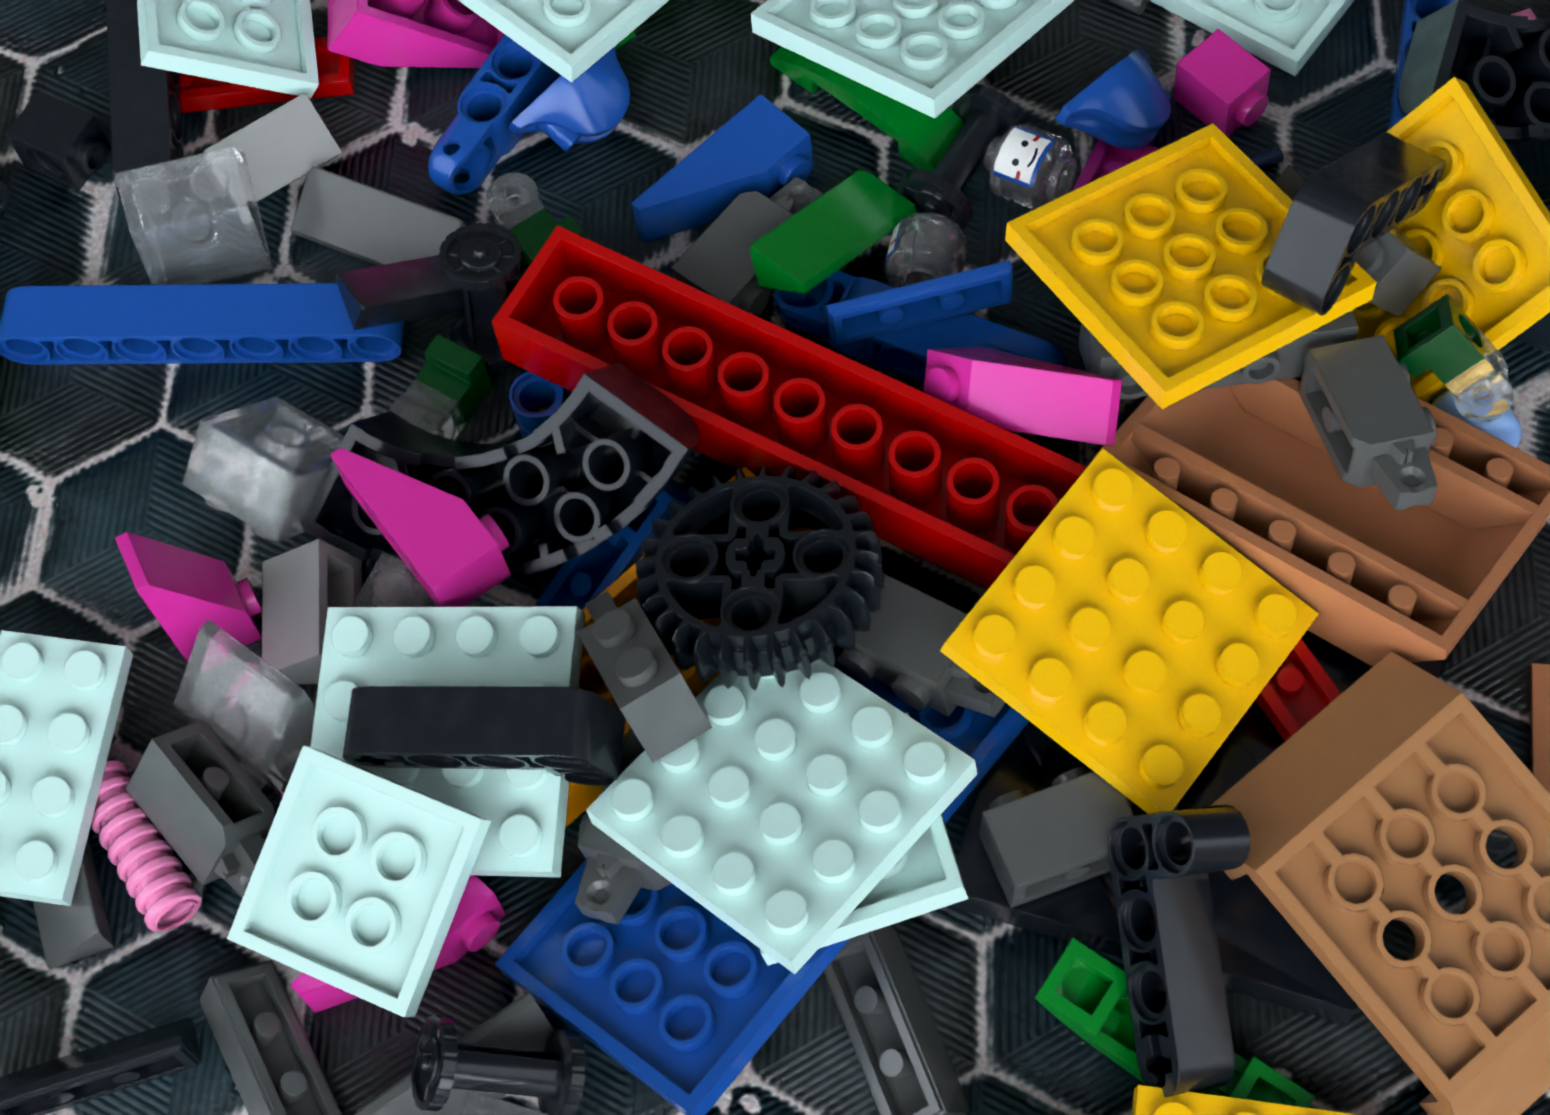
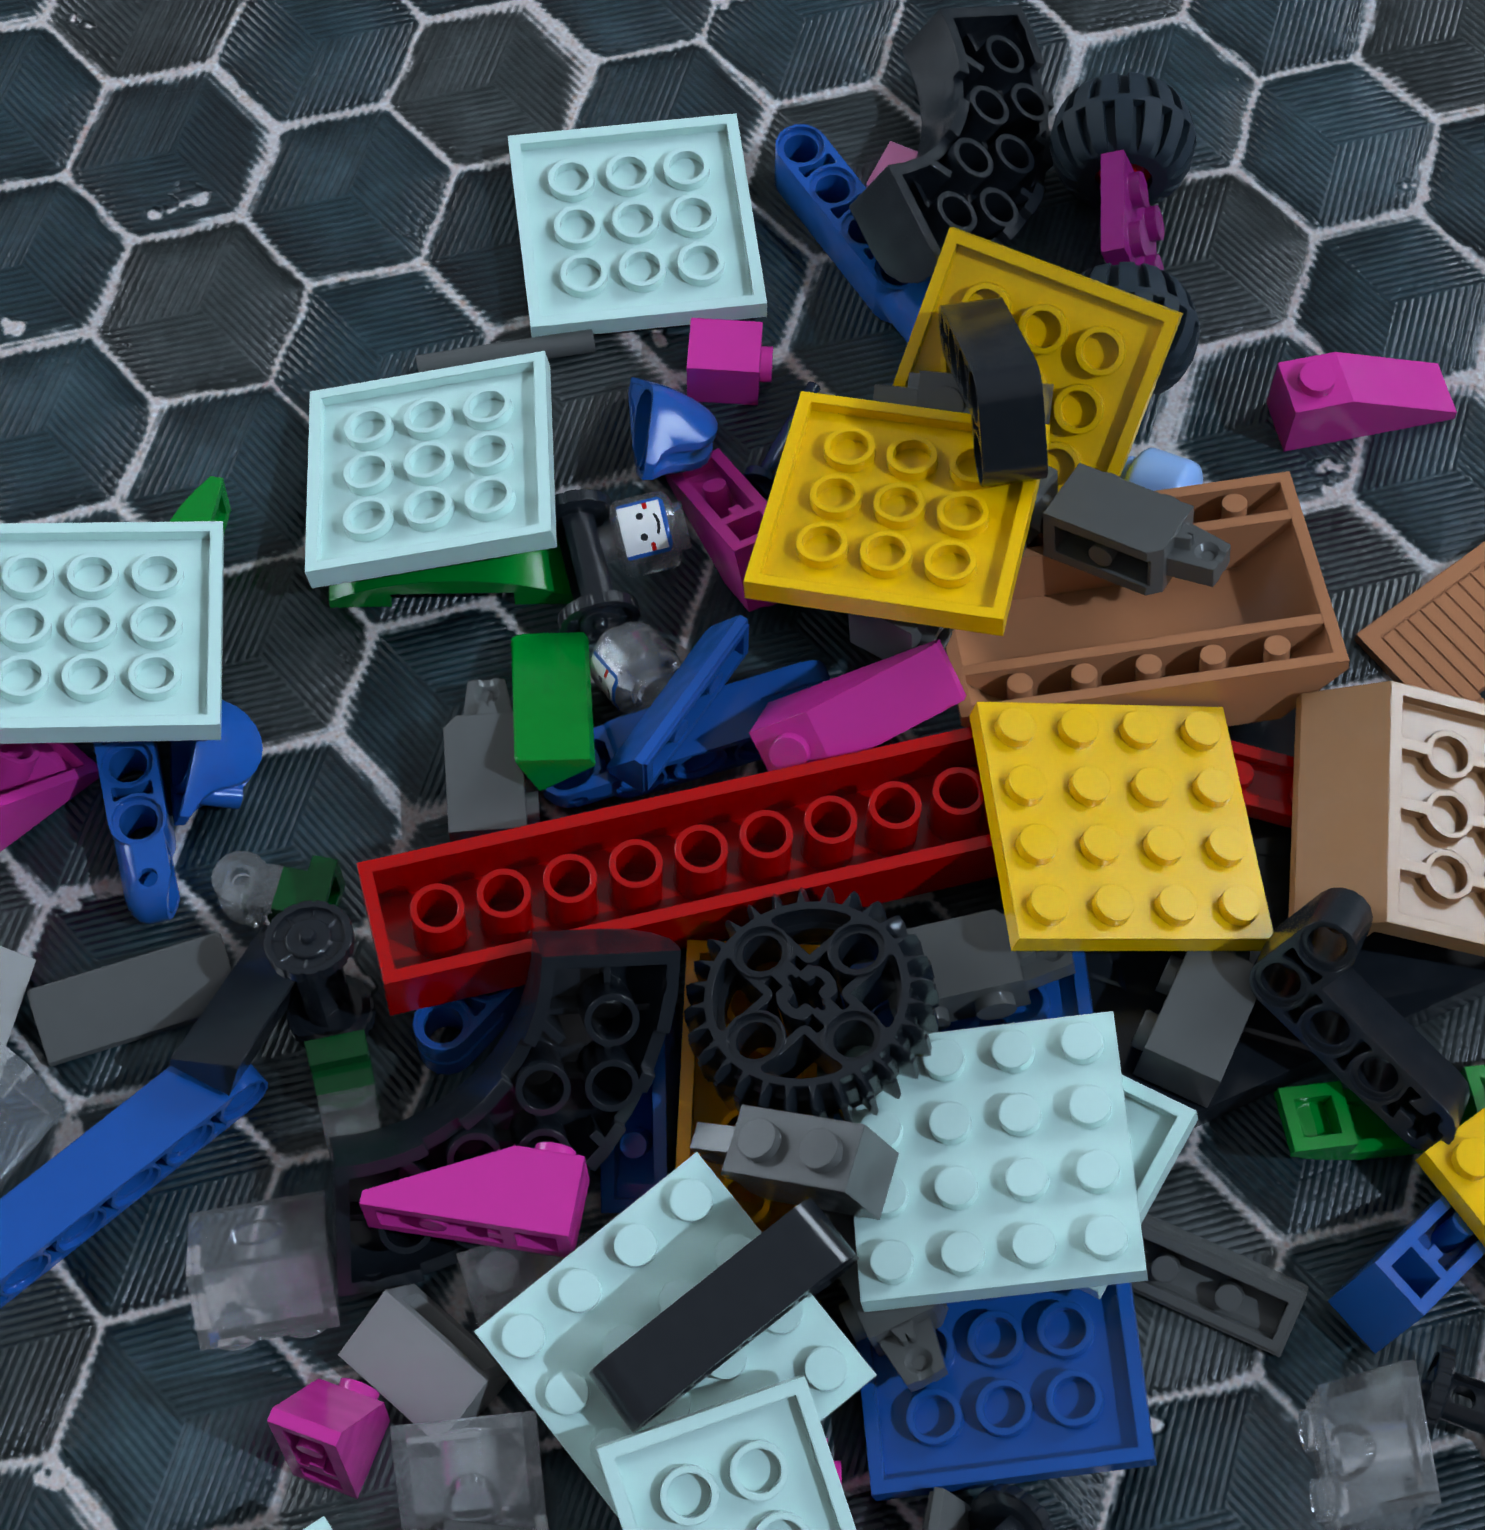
camera: 55 degrees left, 0 degrees up
(749, 153) = (405, 717): blue slope -> none
(1460, 356) = (1123, 438): dark green leg -> none

